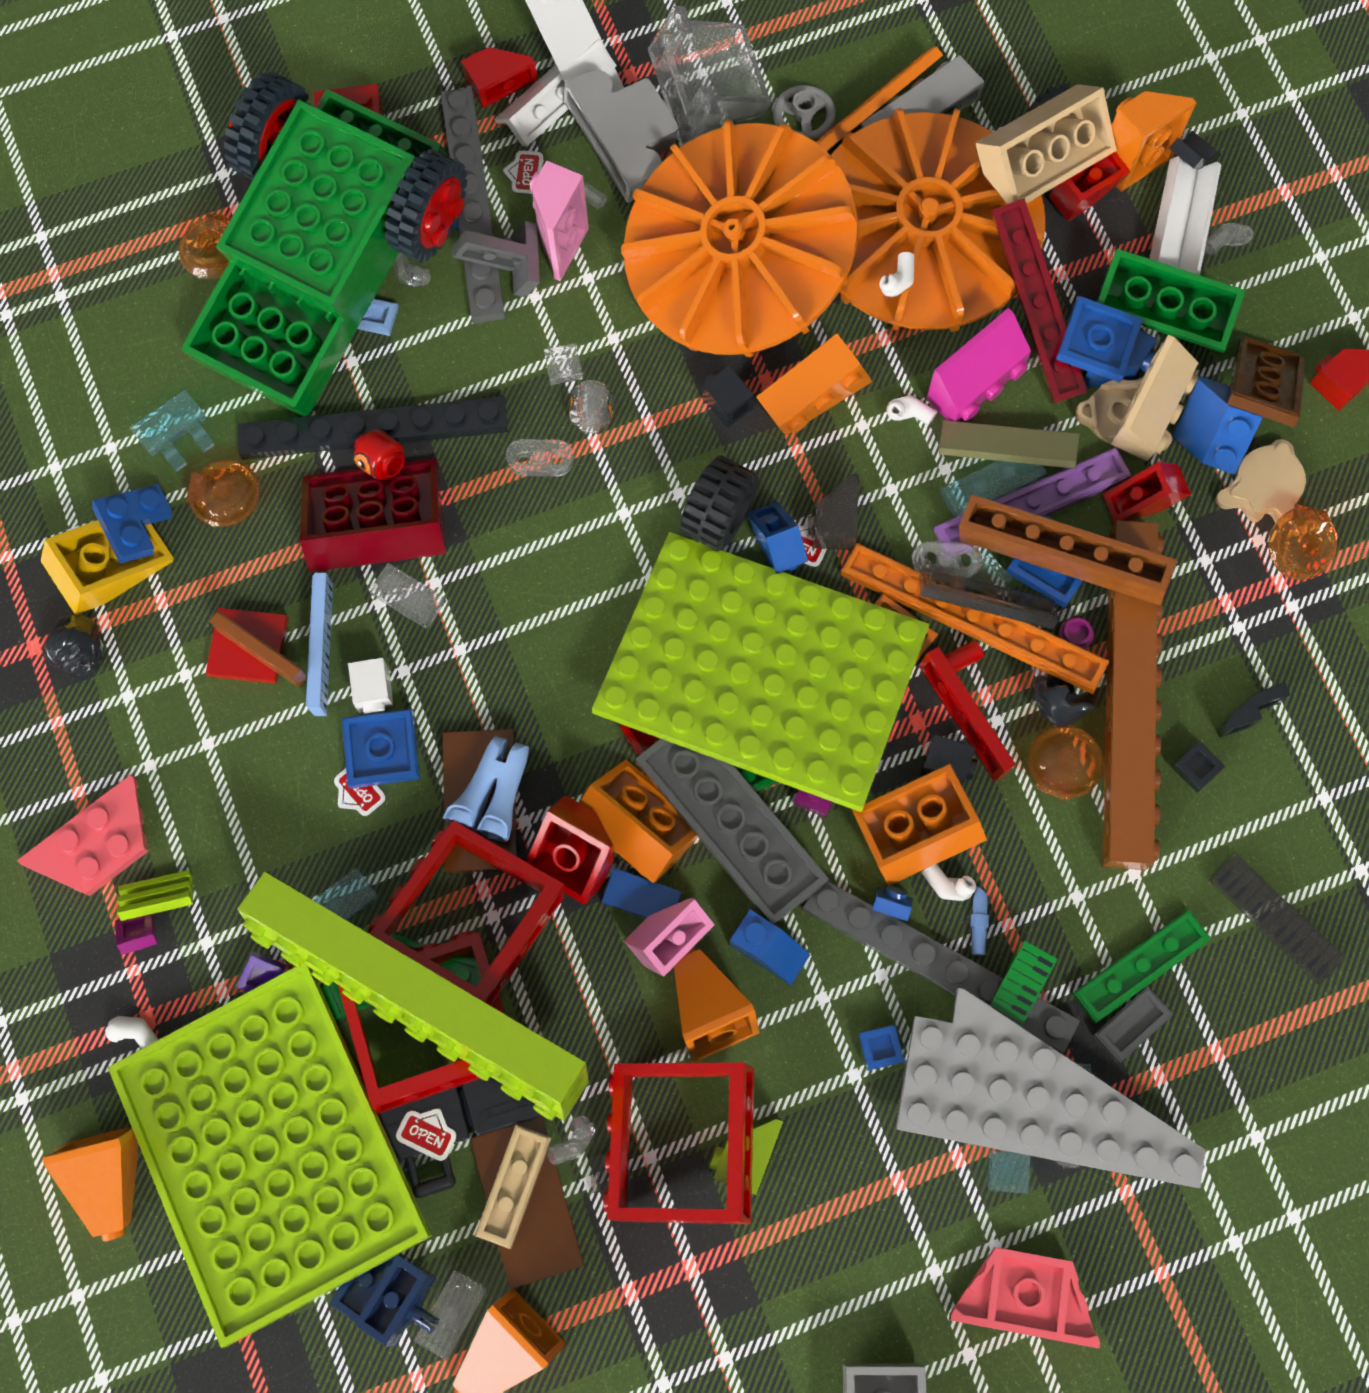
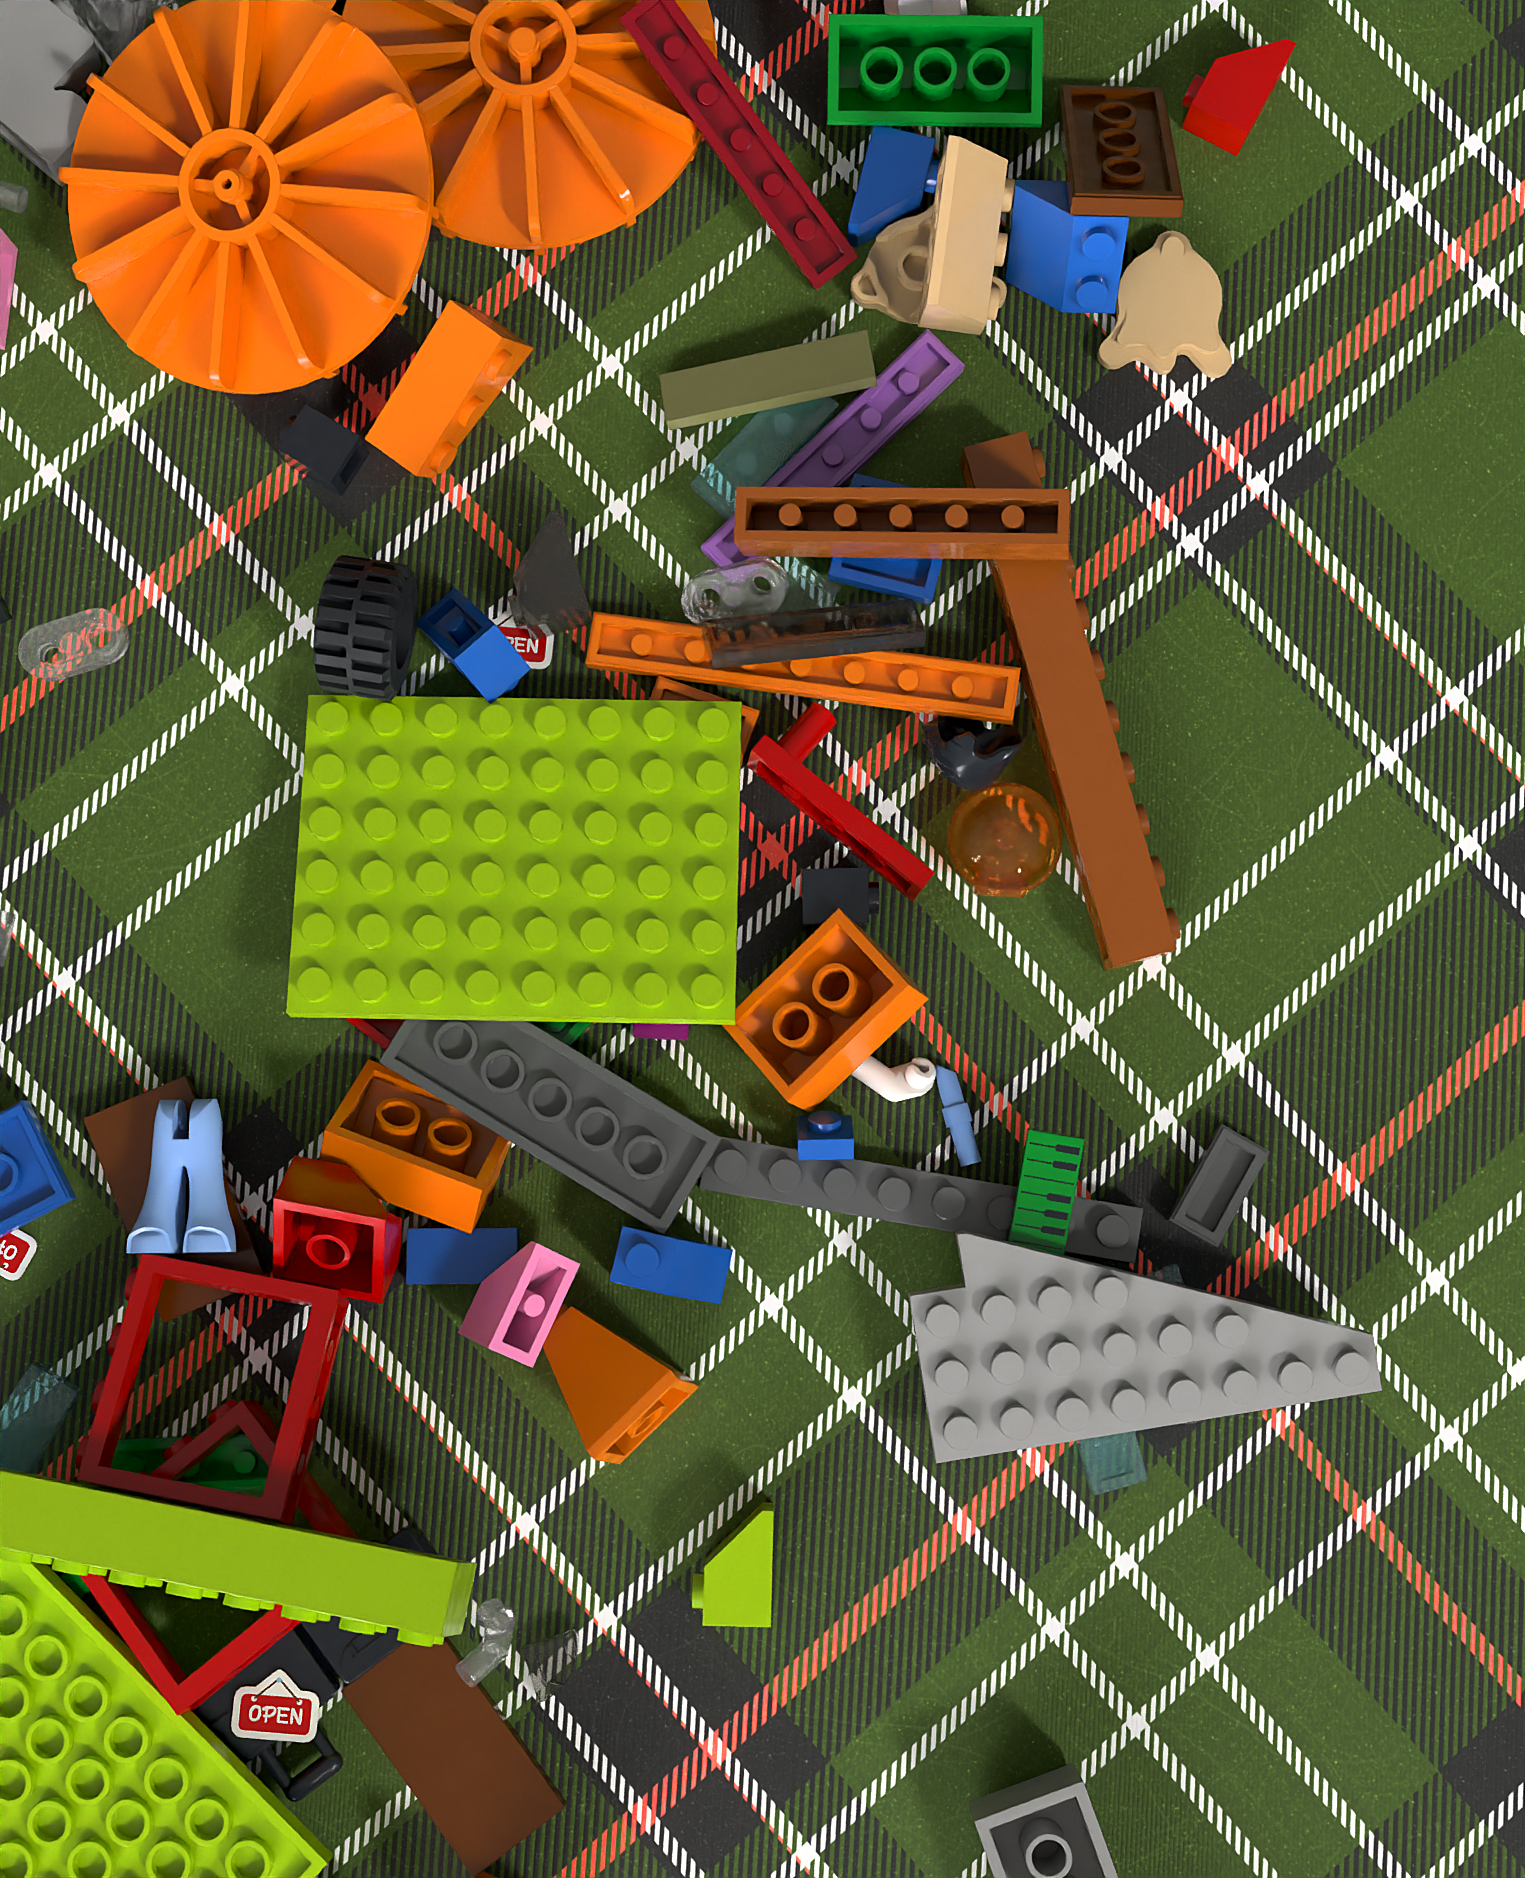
camera: 20 degrees left, 10 degrees up
(513, 1187) = (426, 1738): tan tile -> none
(563, 364) = (55, 484): clear plate -> none
(591, 406) = (122, 537): clear head -> none
(739, 1143) = (722, 1575): red window -> none
(881, 1047) = (877, 1349): blue plate -> none
(902, 279) = (519, 178): white arm -> none
(910, 407) = (603, 371): white arm -> none
(979, 369) = (686, 277): dark pink slope -> none
(1027, 1297) = (1191, 1622): coral wing -> none
(1077, 632) = (960, 637): magenta plate -> none
(1099, 339) = (848, 170): blue plate -> none
(1141, 966) = (1204, 1097): green tile -> none
(1147, 492) = (995, 385): red slope -> none
(1198, 766) = (1196, 777): black plate -> none
(1249, 713) = (1242, 672): black slope -> none
(1277, 919) = (1372, 960): clear smoke tile -> none
(1302, 542) = (1244, 383): clear orange piece -> none

